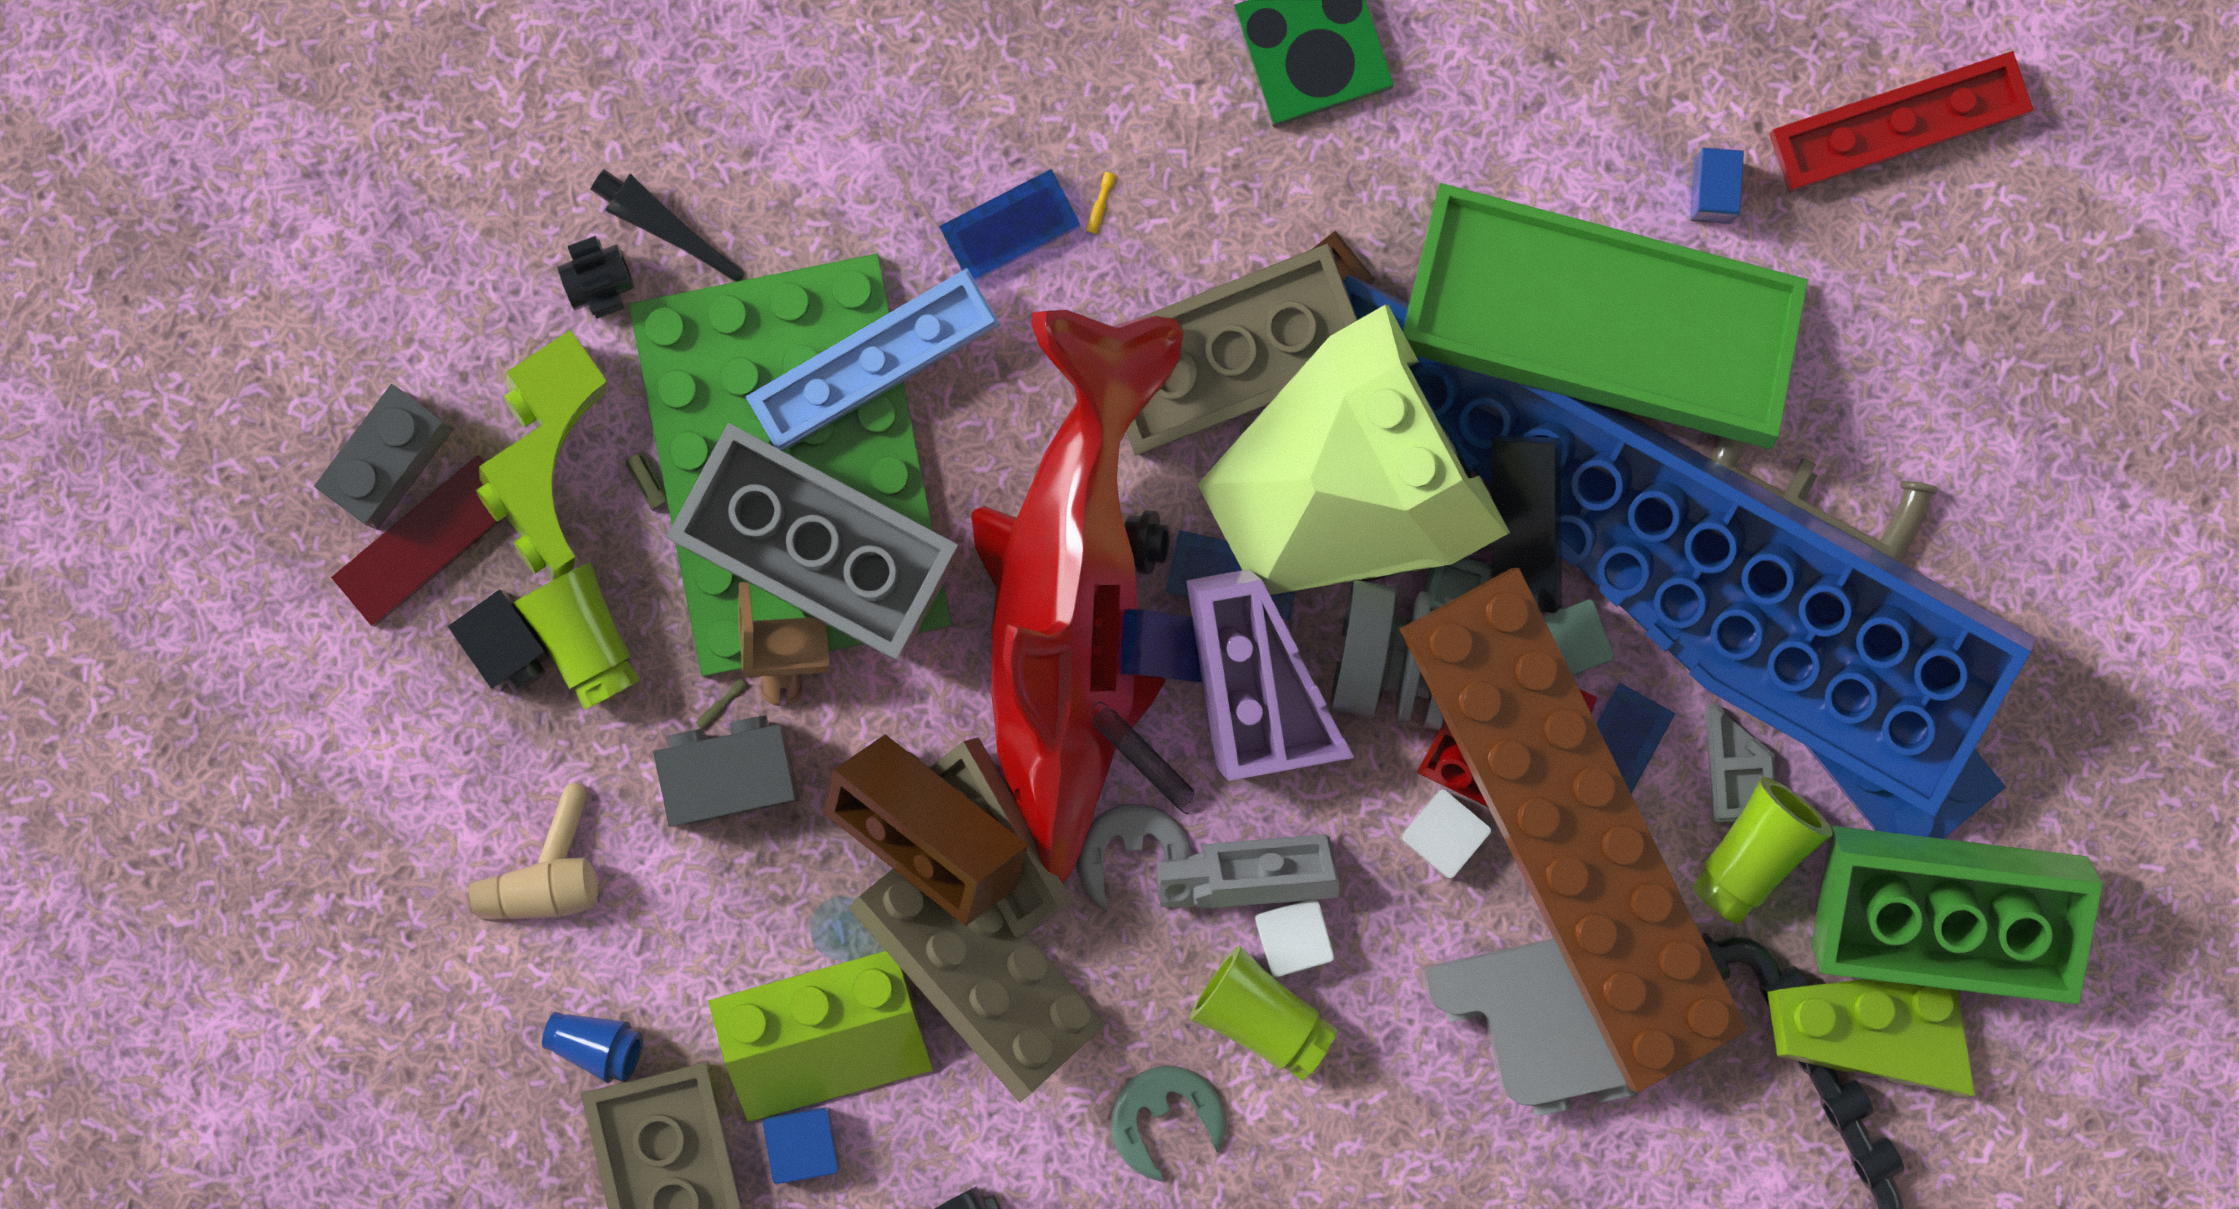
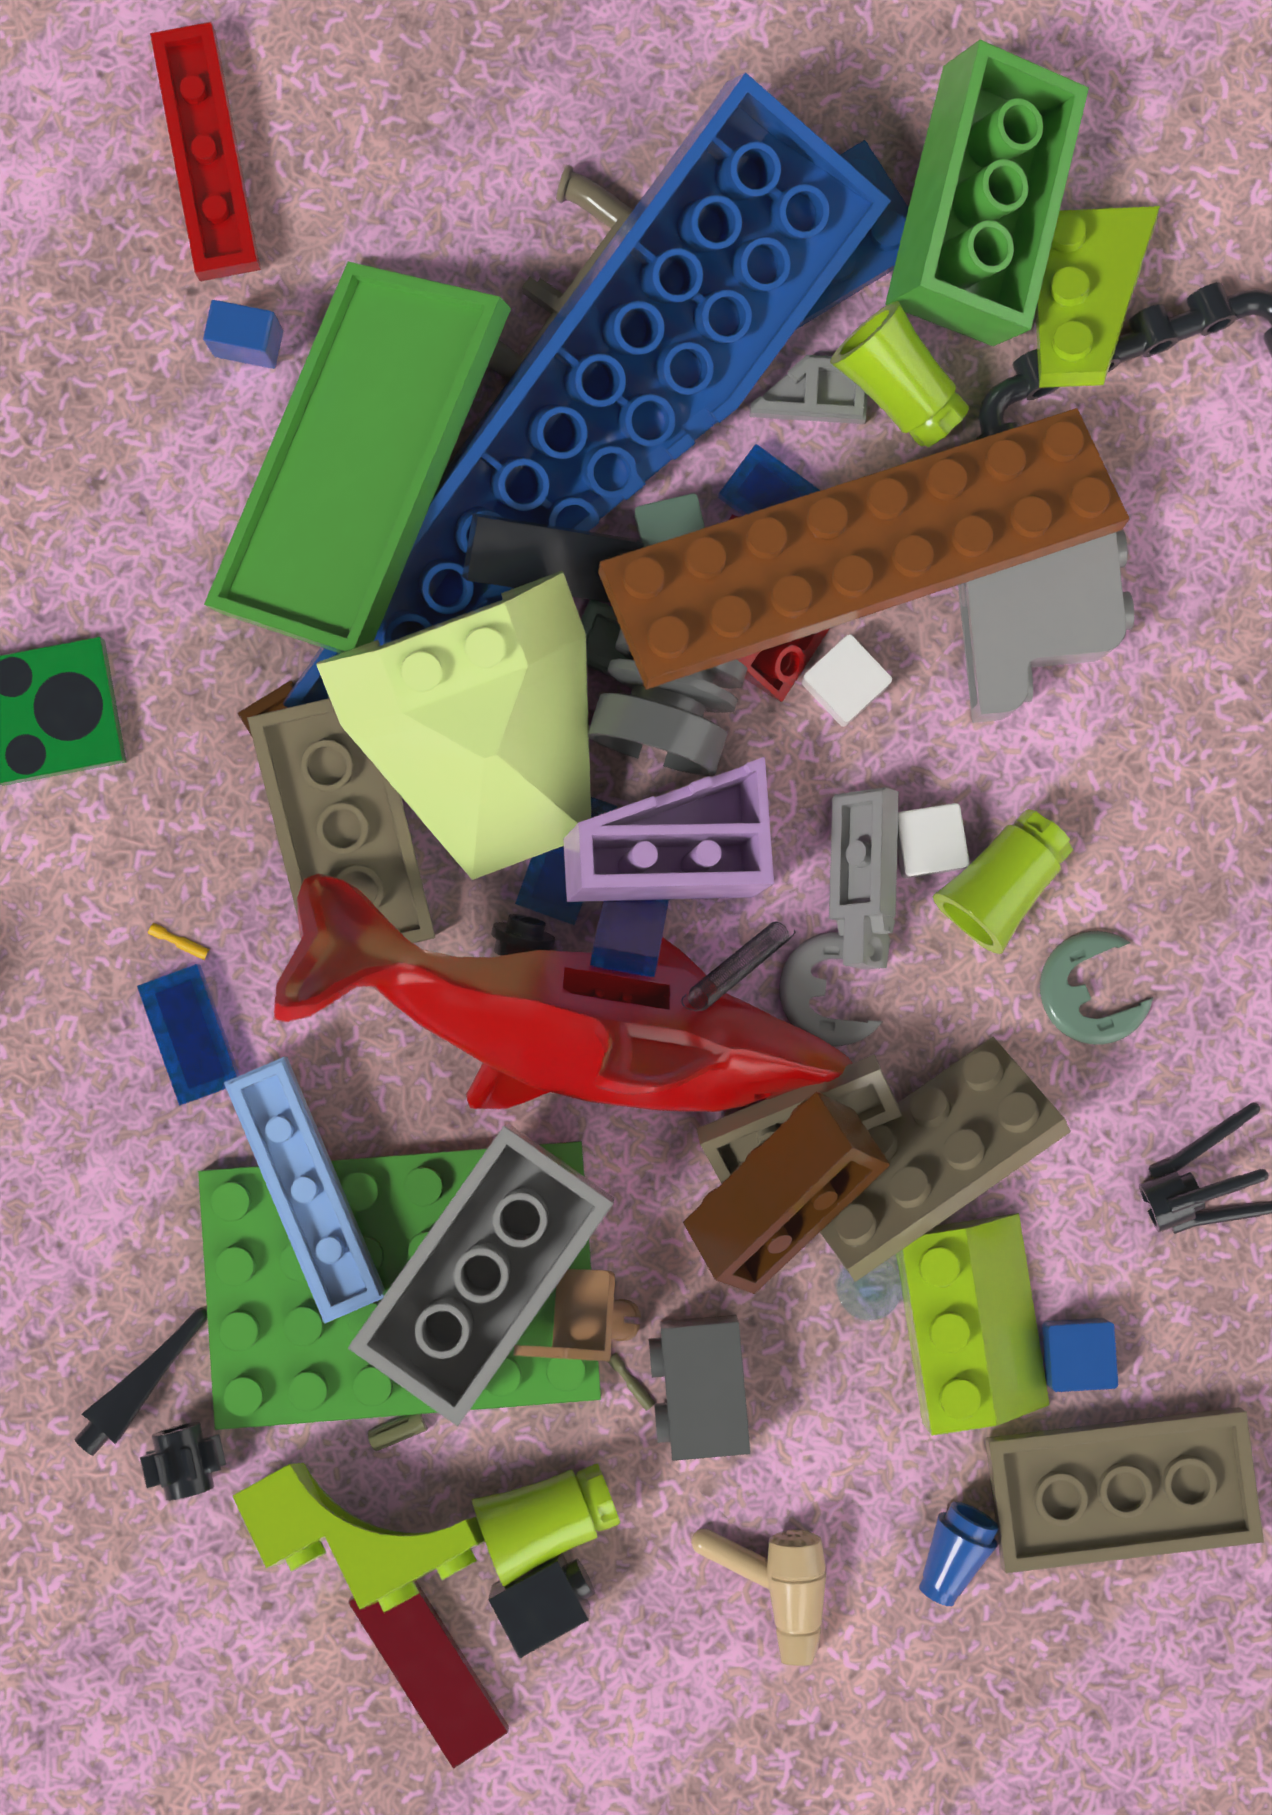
camera: 85 degrees left, 0 degrees up
(383, 457) = (338, 1702): dark grey brick -> none

